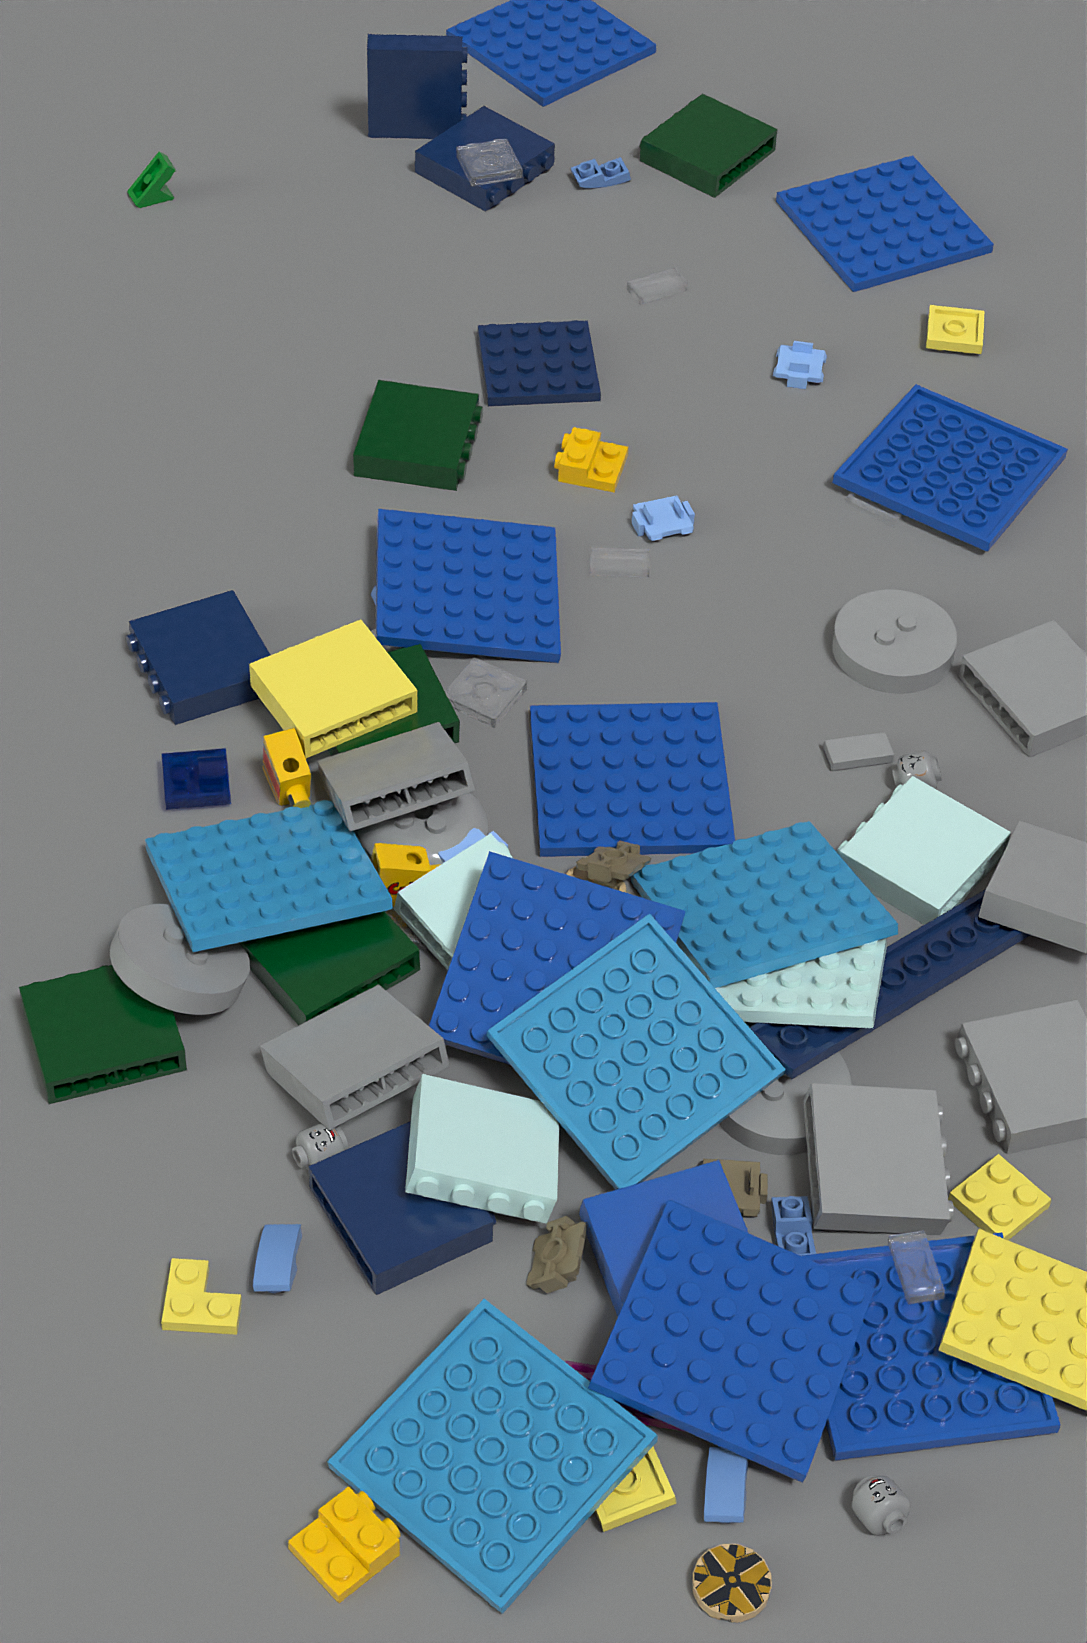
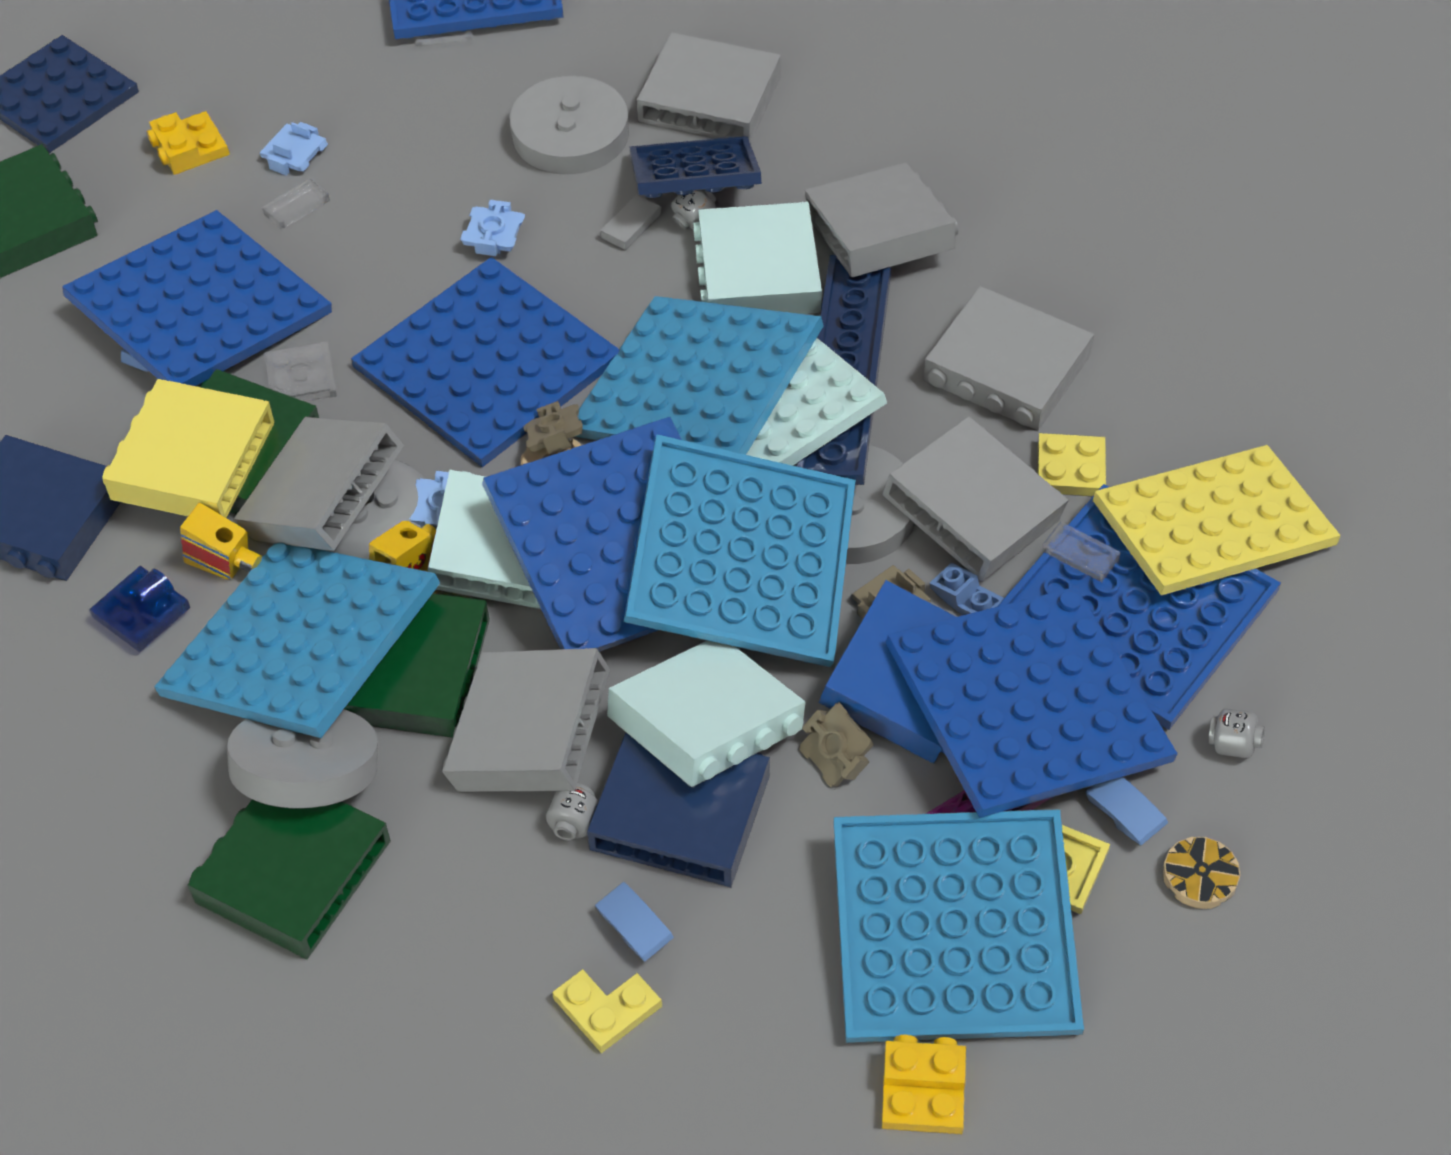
camera: 40 degrees left, 5 degrees up
(741, 681) = (492, 228): none -> light blue piece
(947, 739) = (694, 166): none -> dark blue plate

